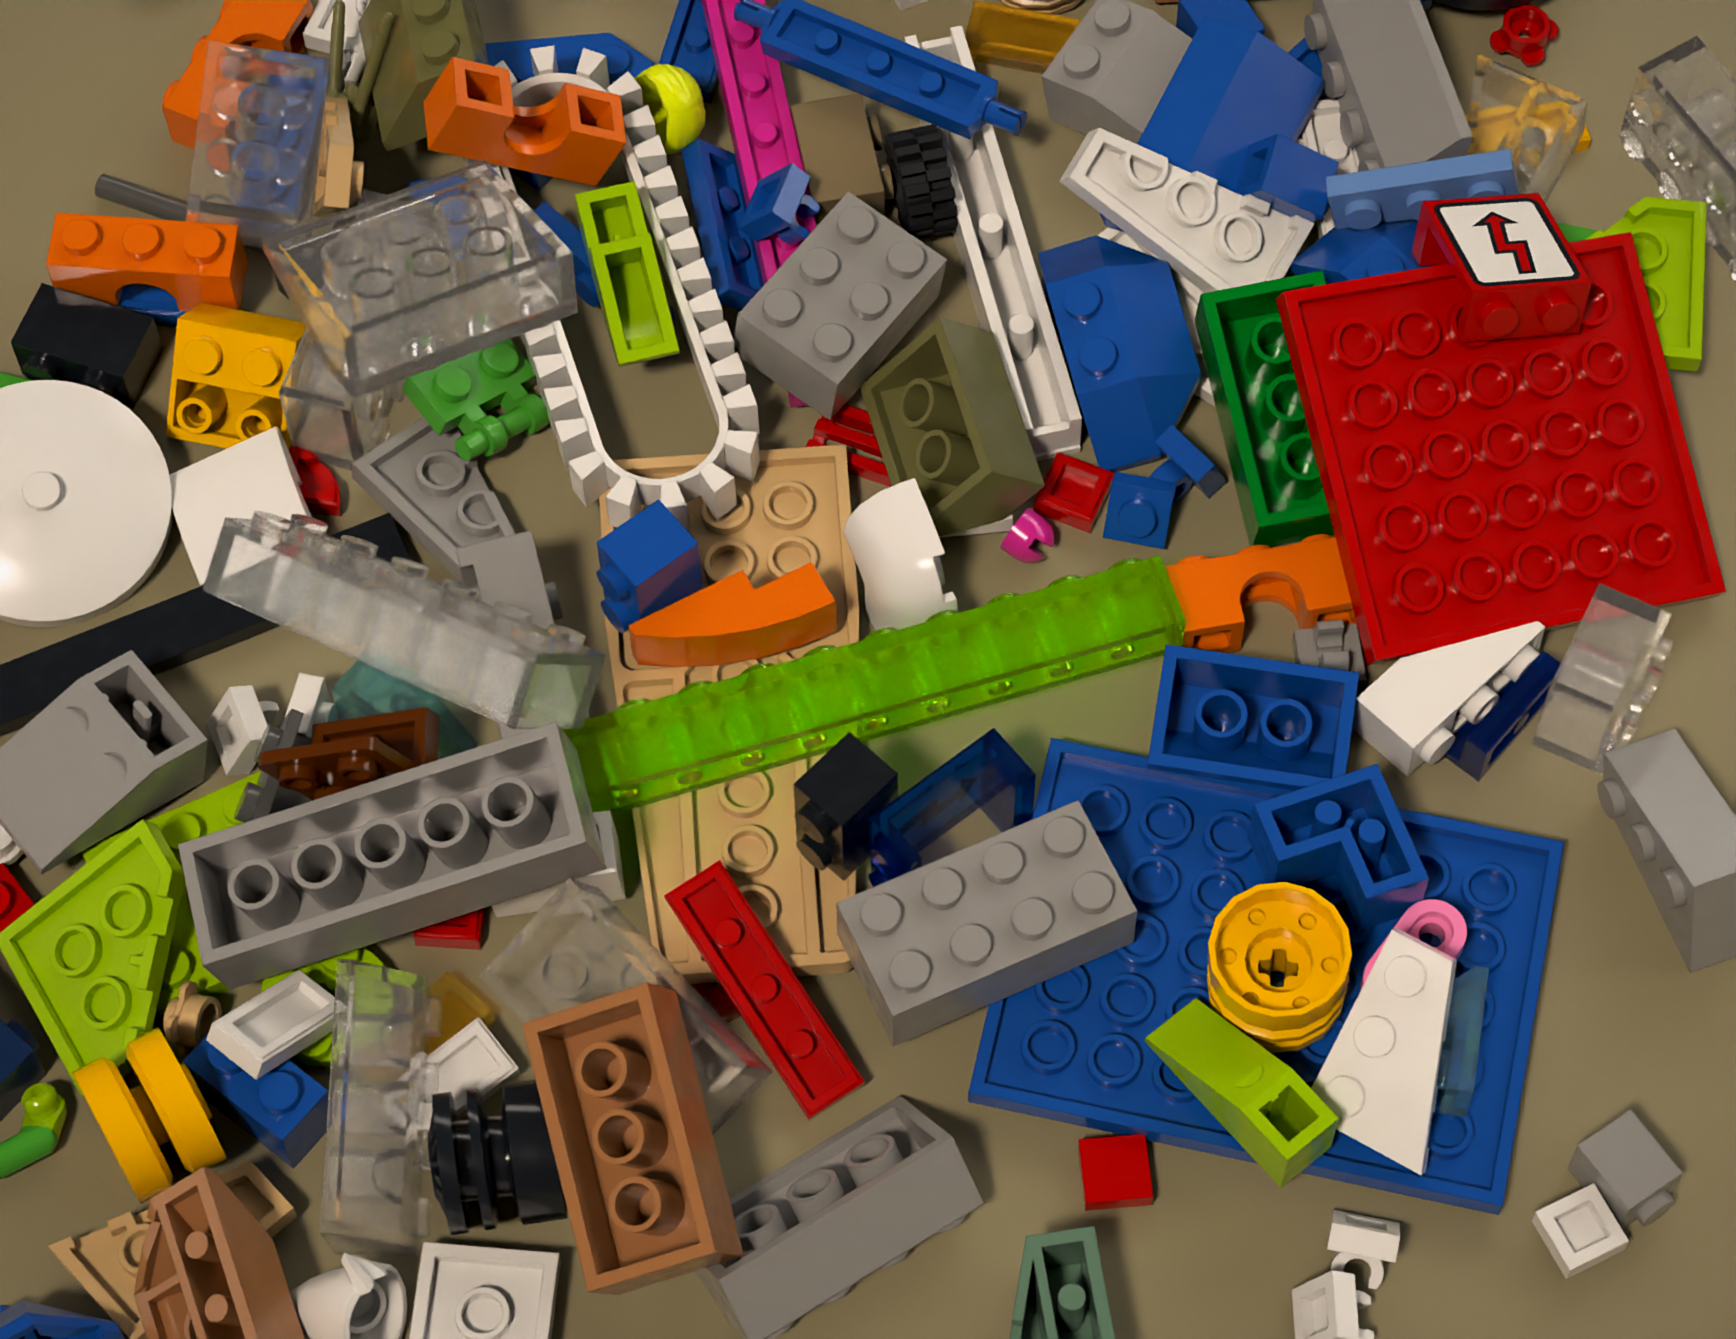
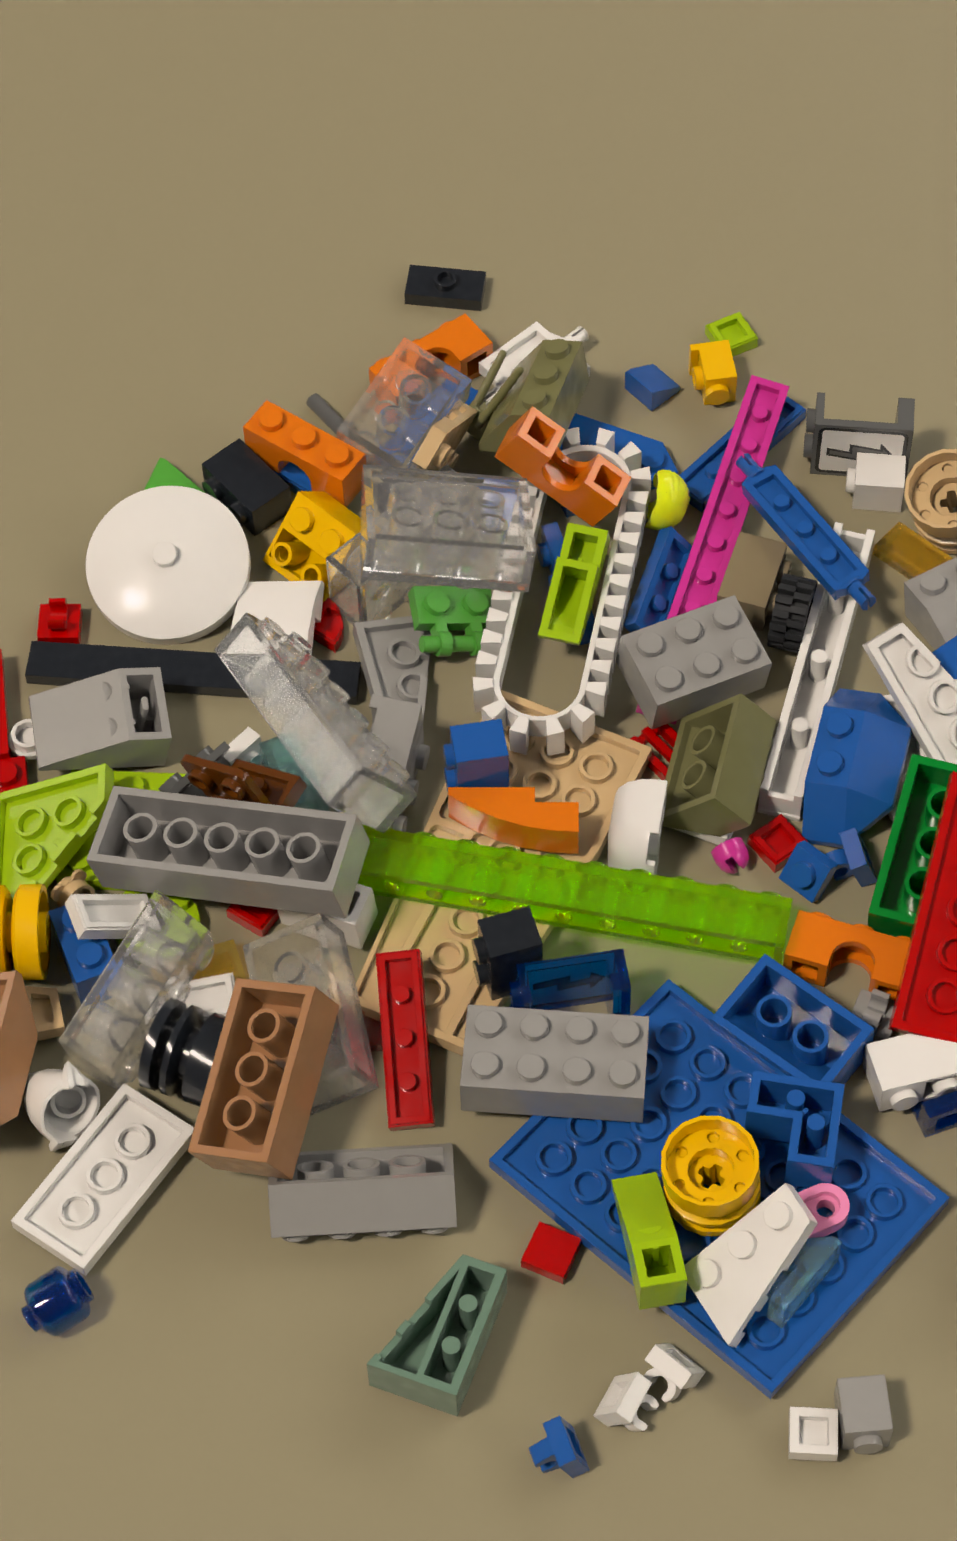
camera: 30 degrees right, 5 degrees down
(238, 728) = (201, 735): white tile -> none
(775, 205) = (691, 585): blue tile -> none

